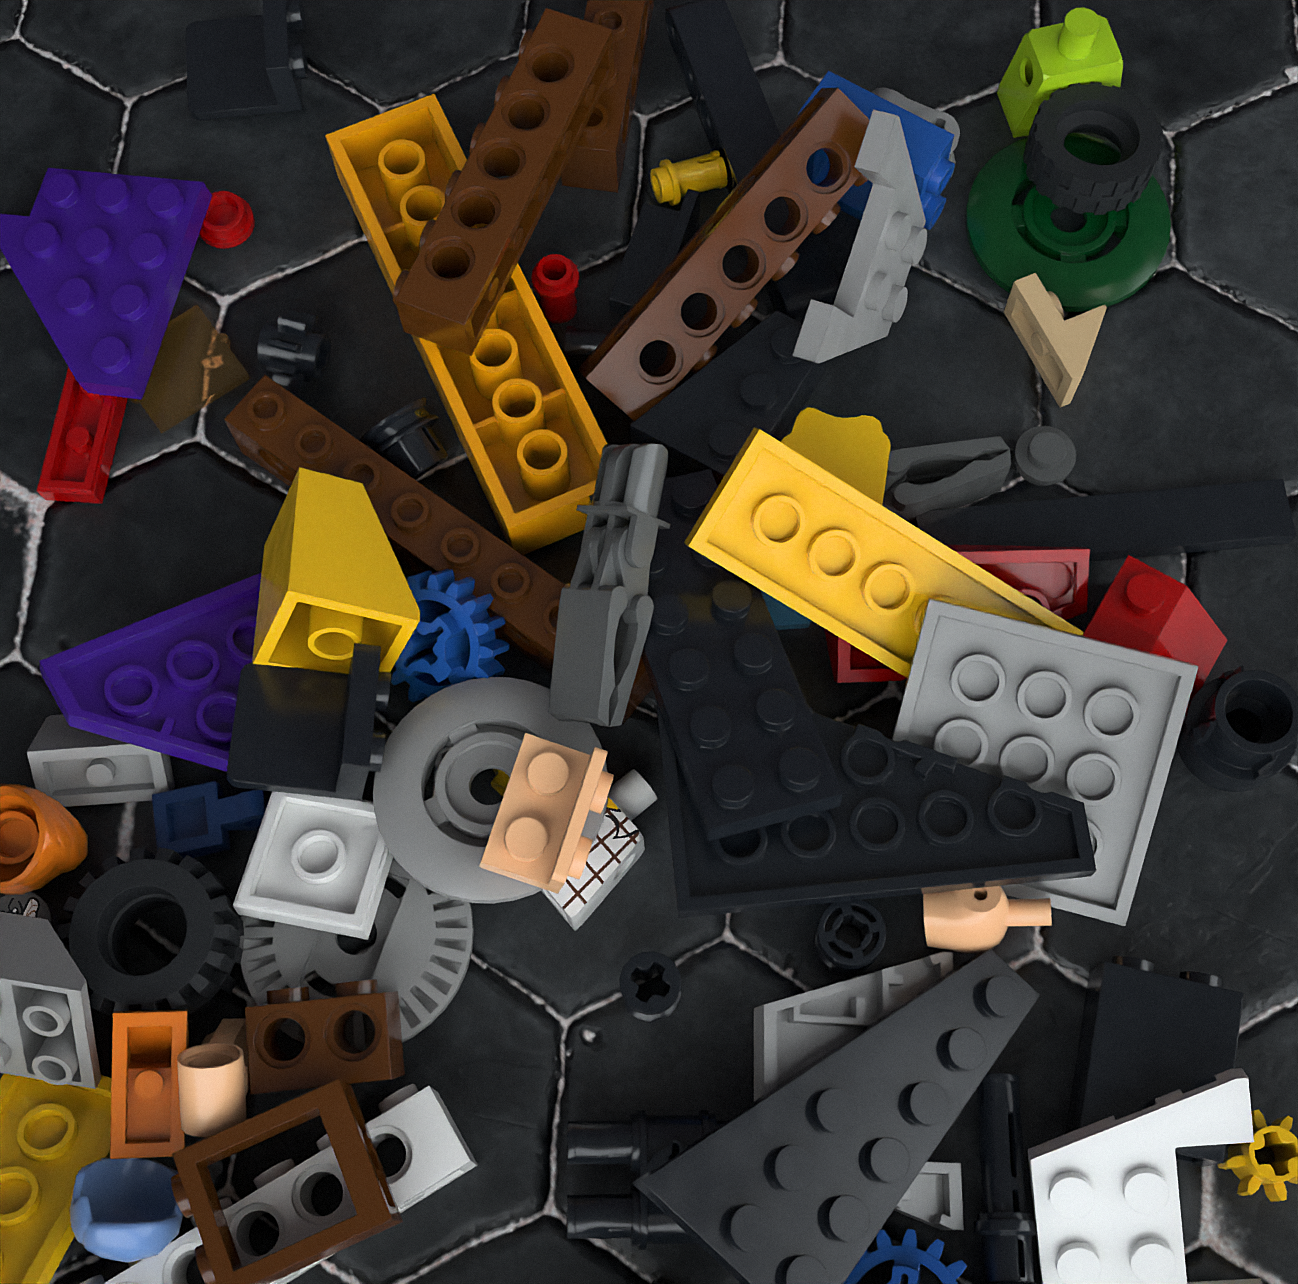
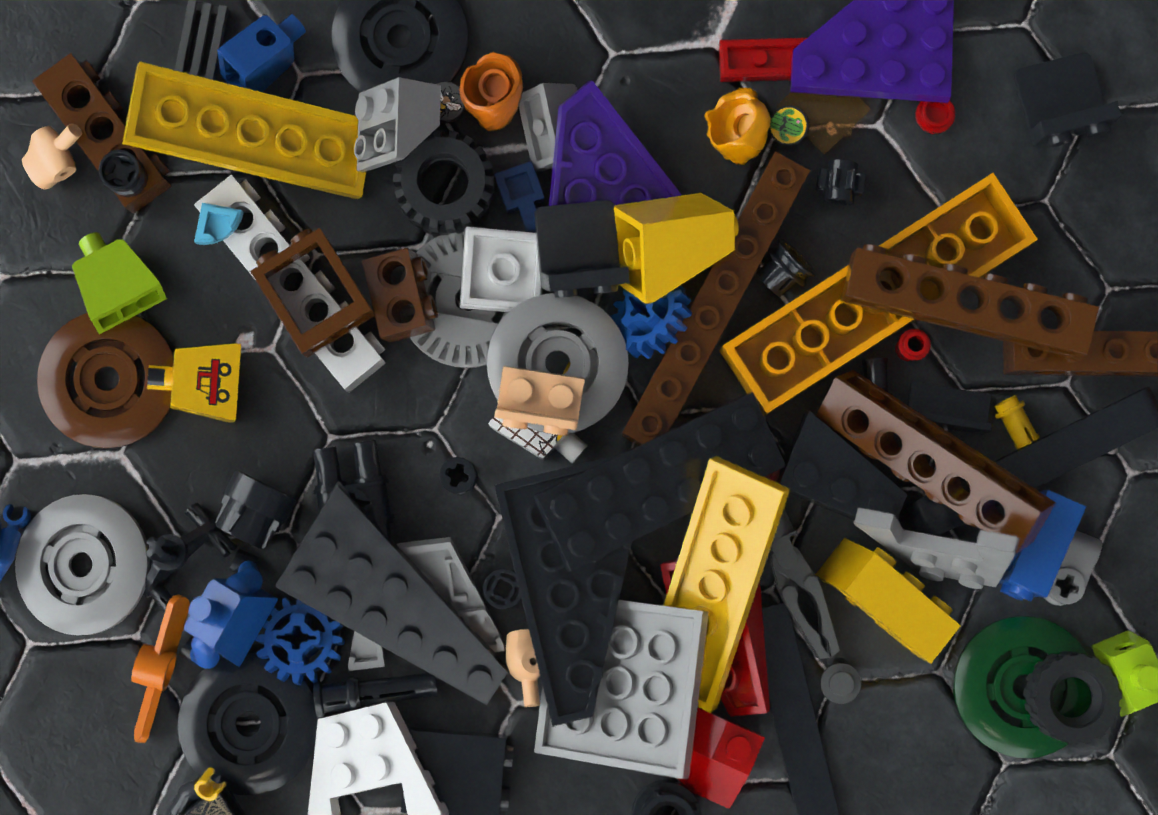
camera: 80 degrees right, 15 degrees up
(124, 1208) = (292, 206): medium blue hair -> none
(146, 1083) = (360, 202): orange slope -> none
(174, 475) = (738, 125): none -> light orange hair
(192, 411) = (789, 125): none -> tile
(214, 1080) = (368, 239): light nougat piece -> none
(607, 603) = (670, 415): dark grey arm -> none
(845, 447) = (804, 546): yellow sticker -> none
(931, 357) = (890, 598): none -> yellow wedge
(1054, 345) = (917, 687): tan slope -> none

